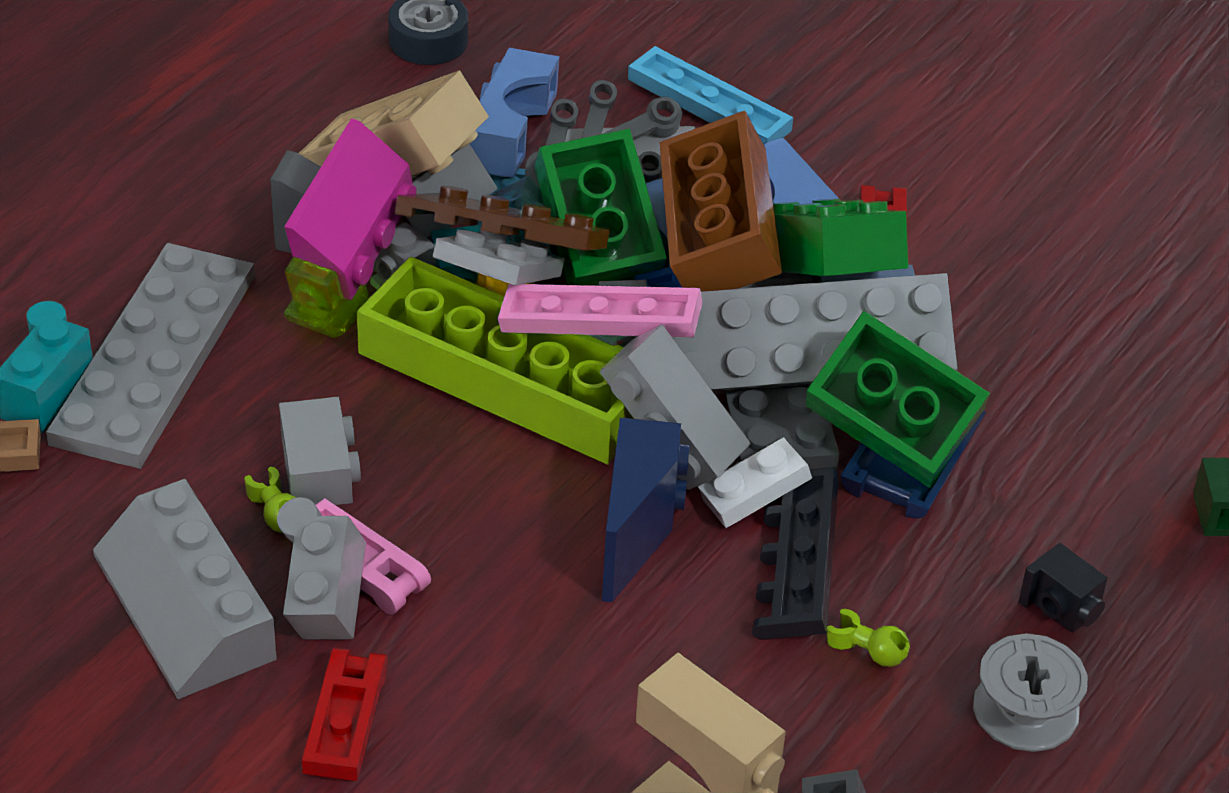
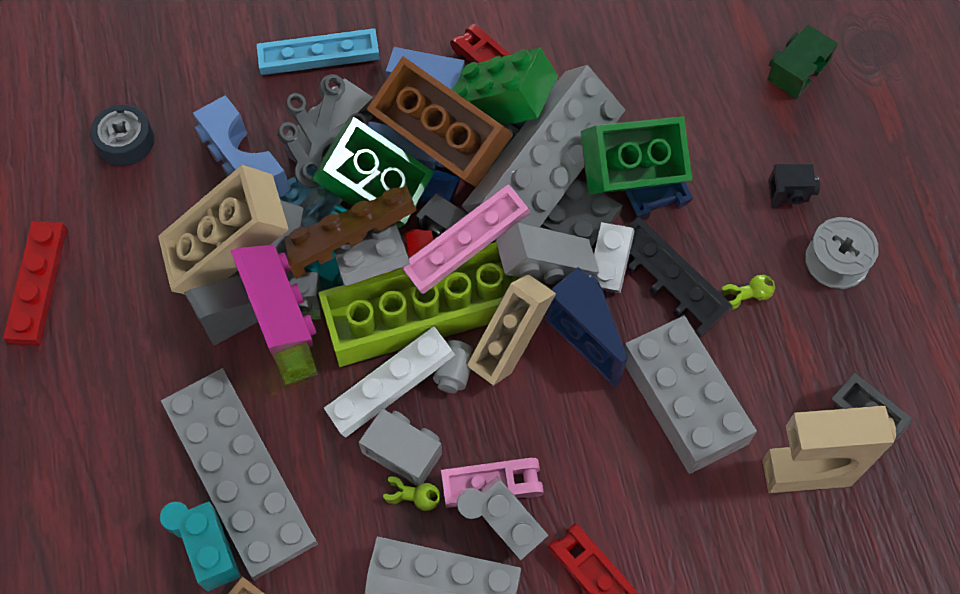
camera: 45 degrees left, 20 degrees up
(195, 80) = (35, 283): none -> red plate
(388, 390) = (389, 382): none -> white plate
(460, 435) = (455, 372): none -> light grey brick
(545, 428) = (511, 329): none -> tan brick
(666, 609) = (688, 394): none -> light grey brick

